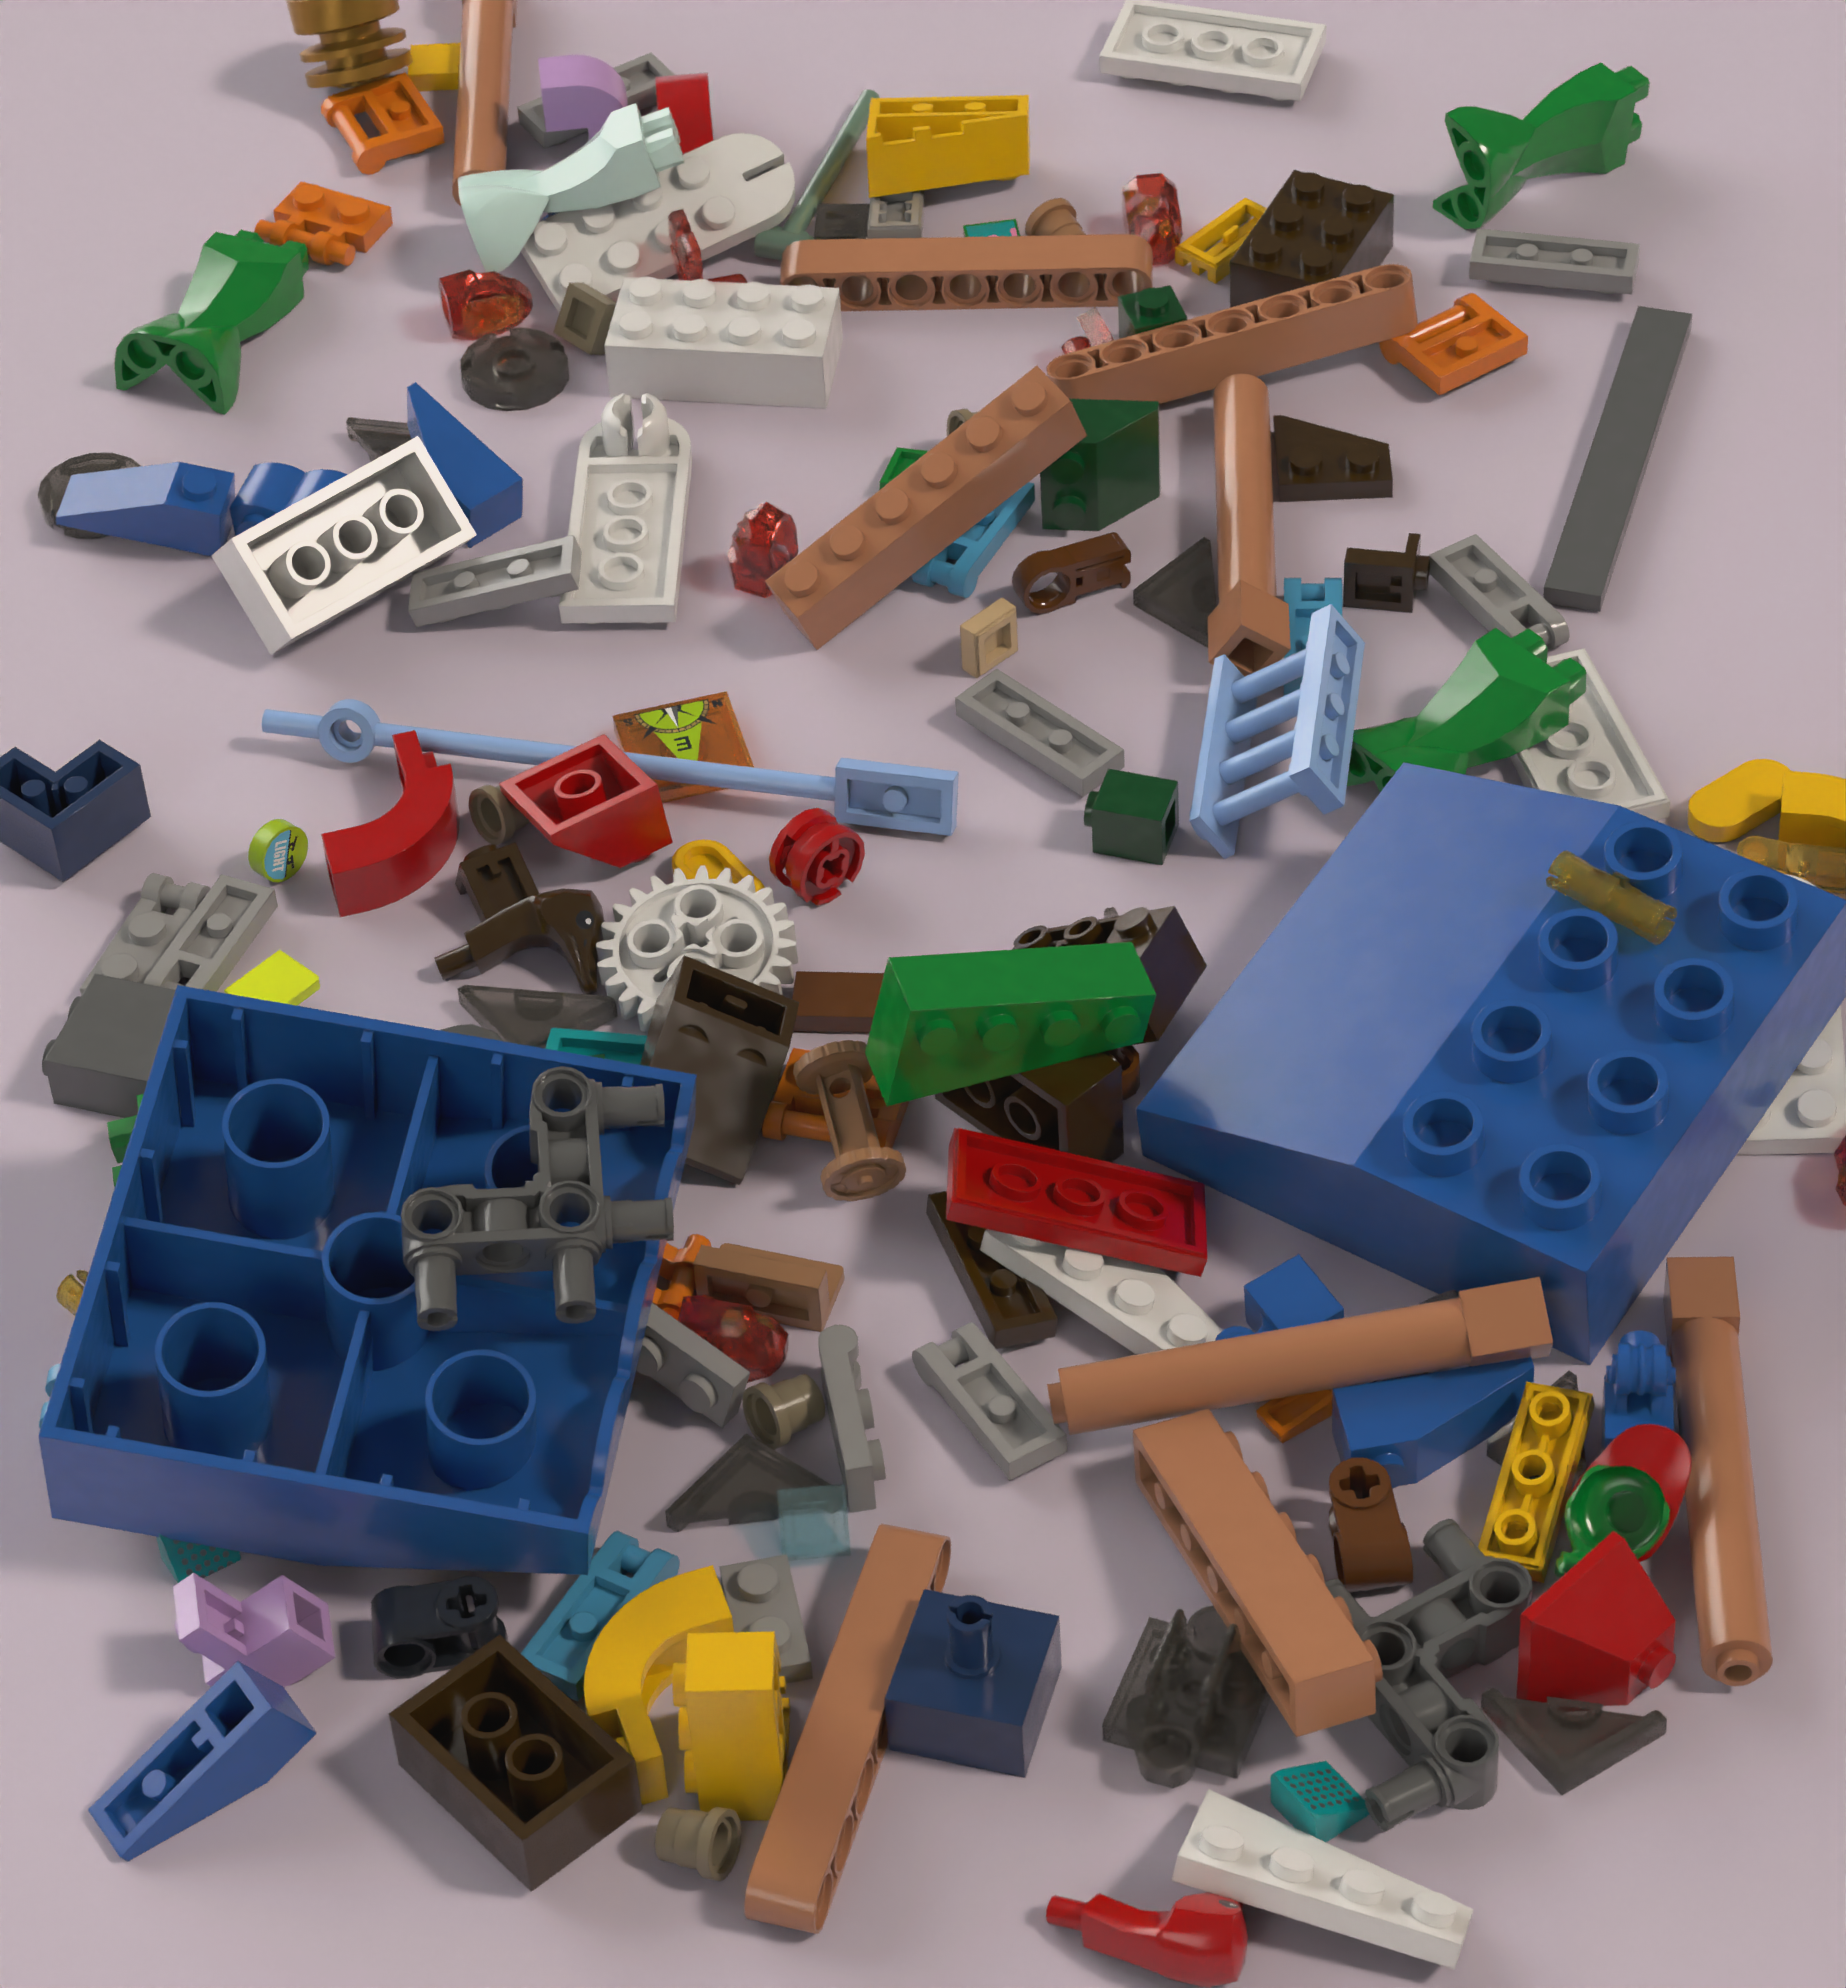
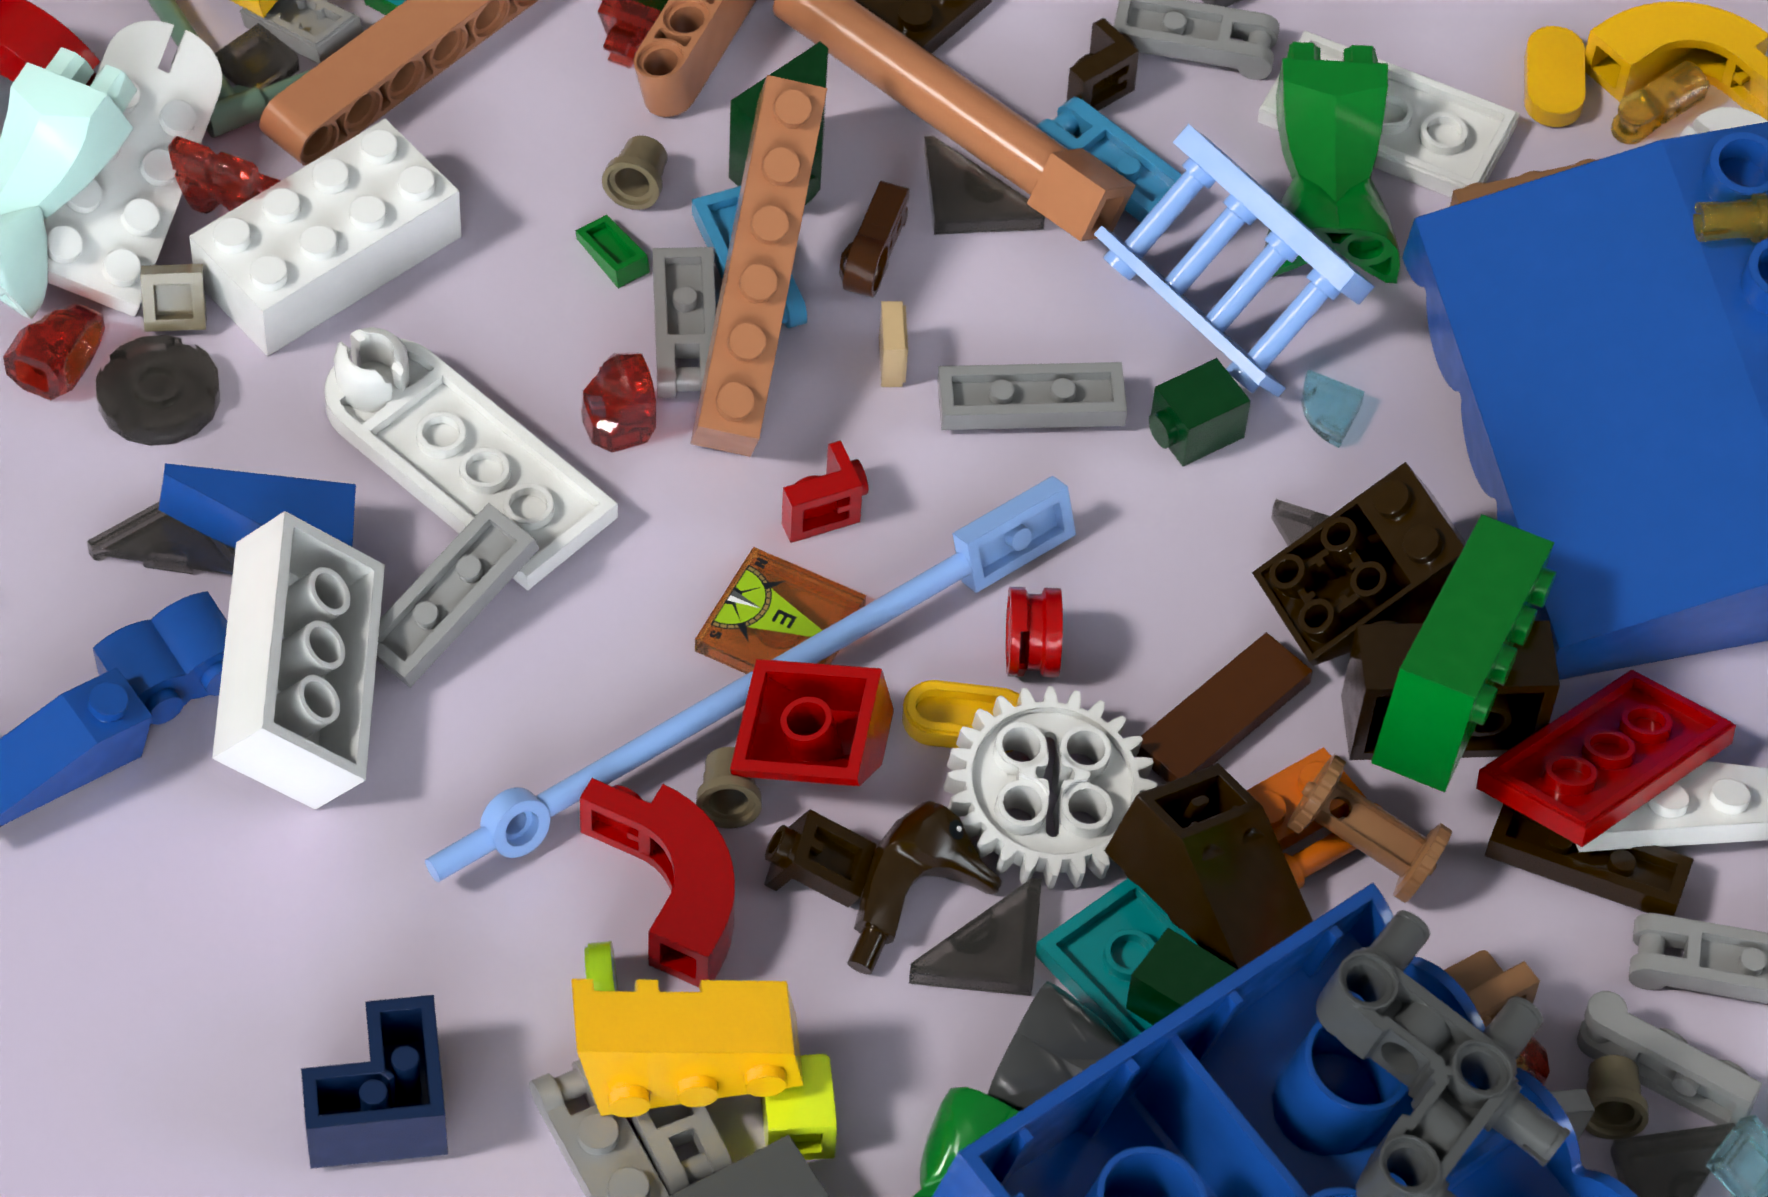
camera: 55 degrees left, 10 degrees up
(224, 891) = (685, 1046): none -> yellow wedge
(809, 695) = (825, 501): none -> red bracket
(1246, 886) = (1330, 406): none -> clear light blue tile

